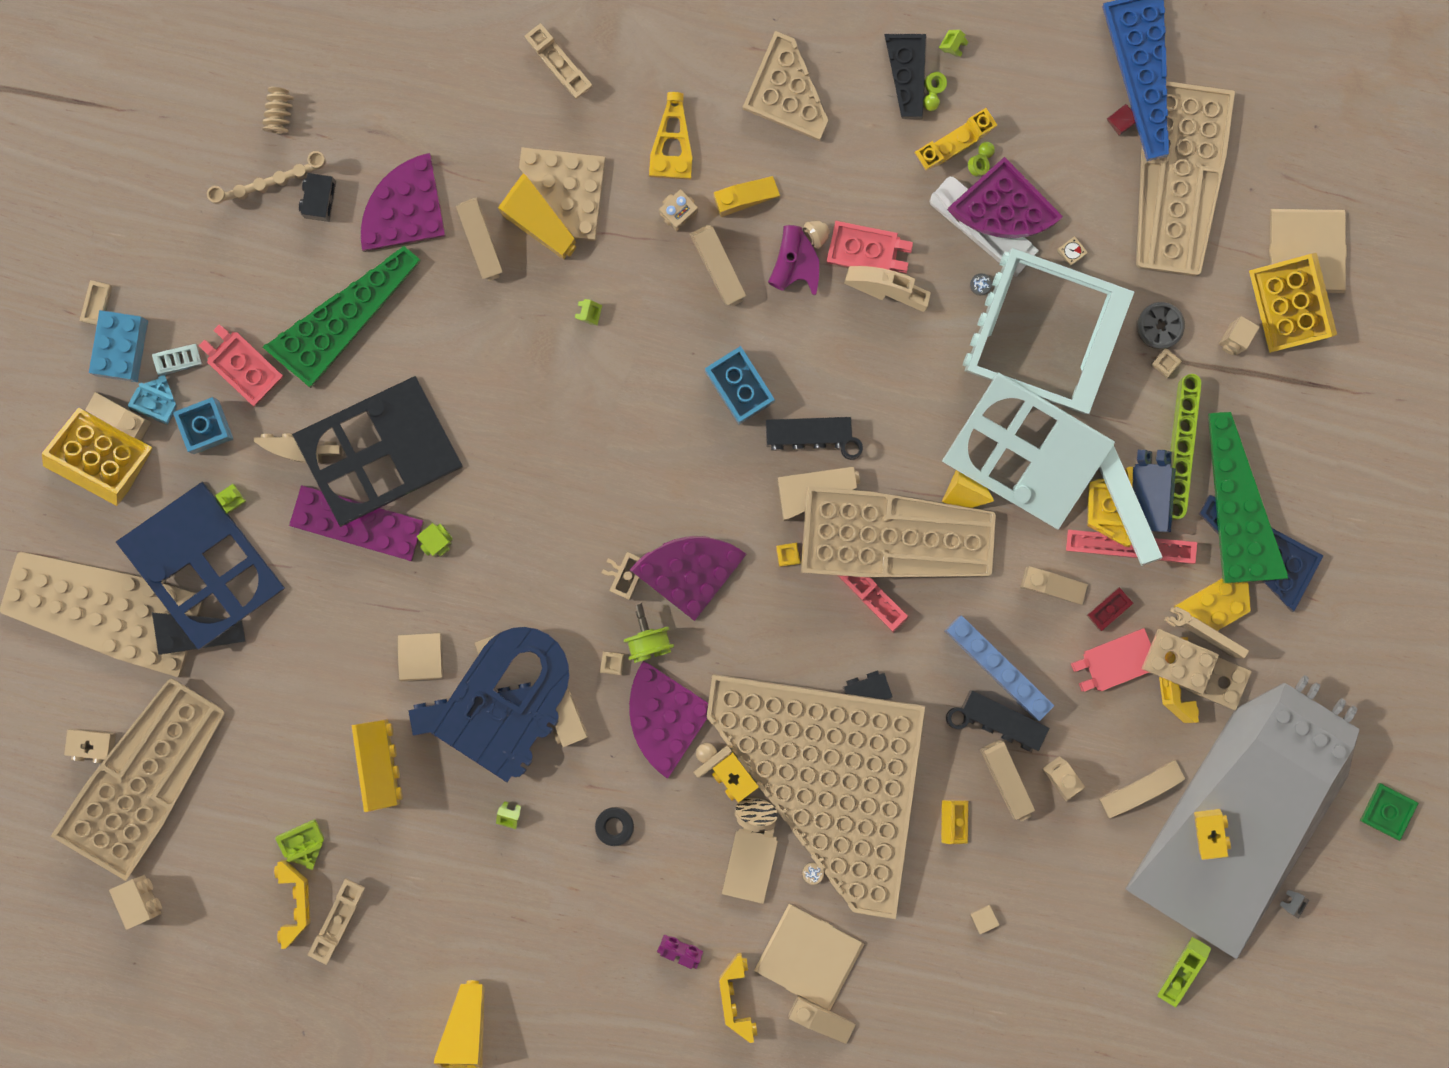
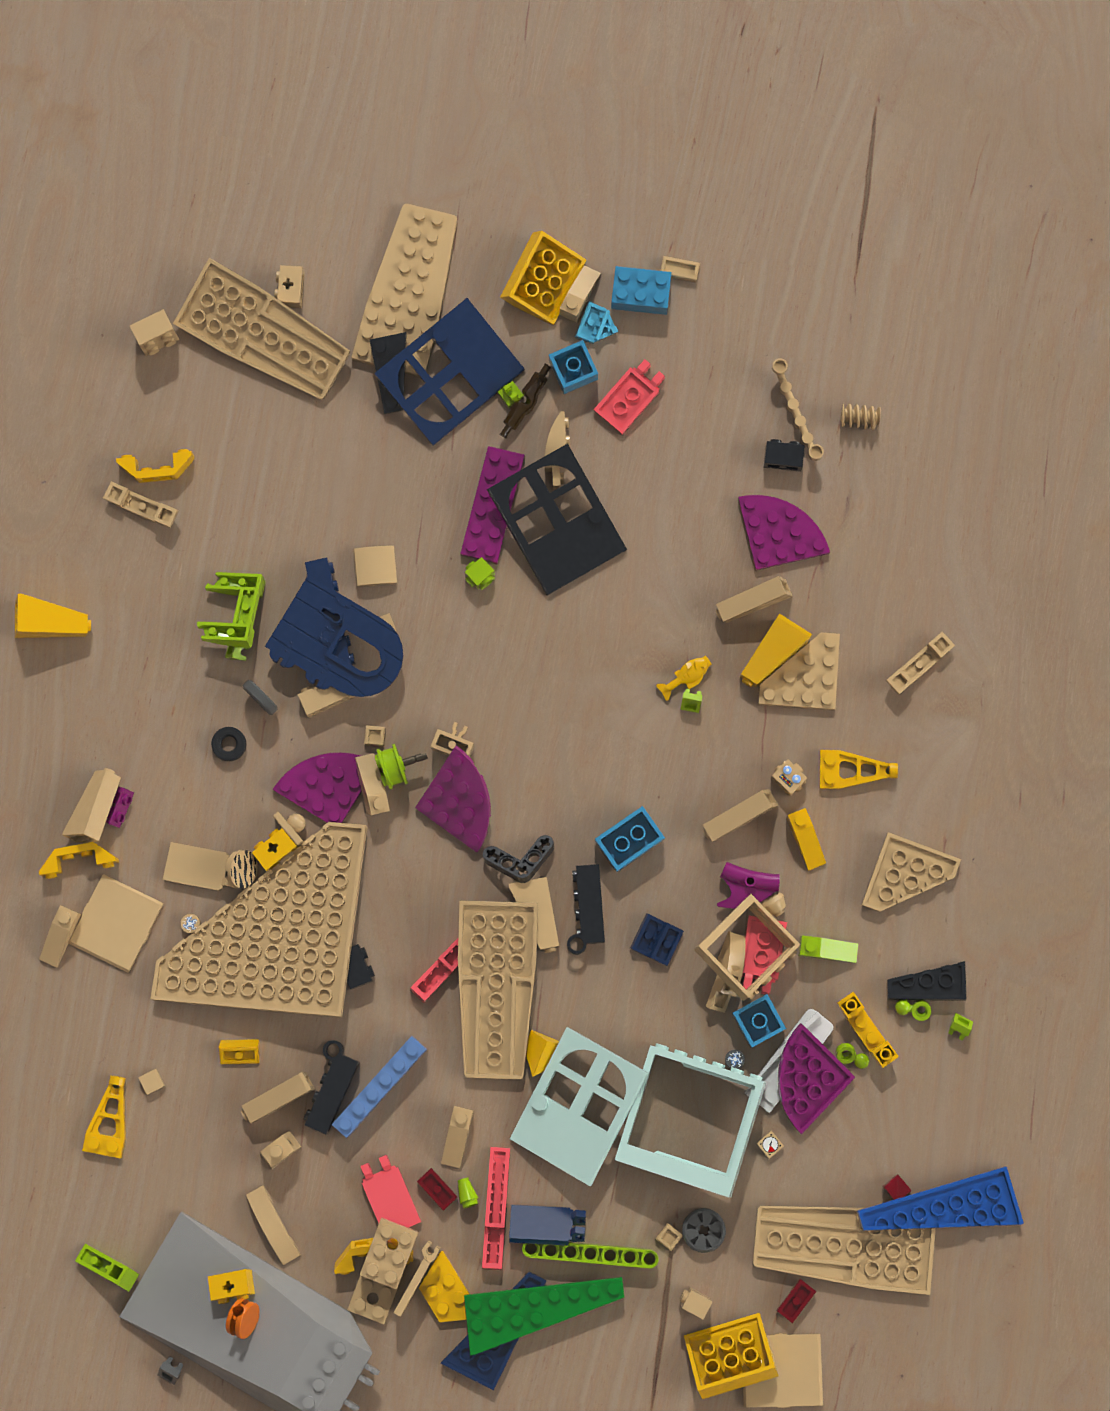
camera: 90 degrees right, 5 degrees down
(157, 358) = (626, 326): light aqua slope -> none
(248, 488) = (521, 409): none -> dark brown piece
(301, 843) = (208, 471): lime slope -> none
(325, 333) = (661, 468): green wing -> none
(376, 765) = (277, 531): yellow slope -> none
(440, 798) = (249, 590): none -> lime wedge
(559, 312) = (689, 674): none -> yellow animal
(564, 789) = (260, 697): none -> dark grey wheel
(668, 666) = (371, 785): none -> tan slope
(680, 980) = (93, 808): none -> tan slope
(762, 501) = (523, 864): none -> black beam
(788, 554) = (478, 890): yellow tile -> none
(848, 362) = (656, 939): none -> dark blue slope
(866, 179) = (828, 949): none -> lime slope
(898, 245) = (772, 924): none -> tan window
(942, 255) = (758, 1021): none -> dark azure brick
(1050, 972) = (106, 1144): none -> yellow plate
(1103, 513) = (532, 1187): yellow wing -> none
(1115, 577) = (467, 1194): none -> lime cone
(1129, 509) = (530, 1202): light aqua tile -> none
(1237, 231) = (796, 1300): none -> dark red plate
(1249, 821) = (242, 1318): none -> orange head

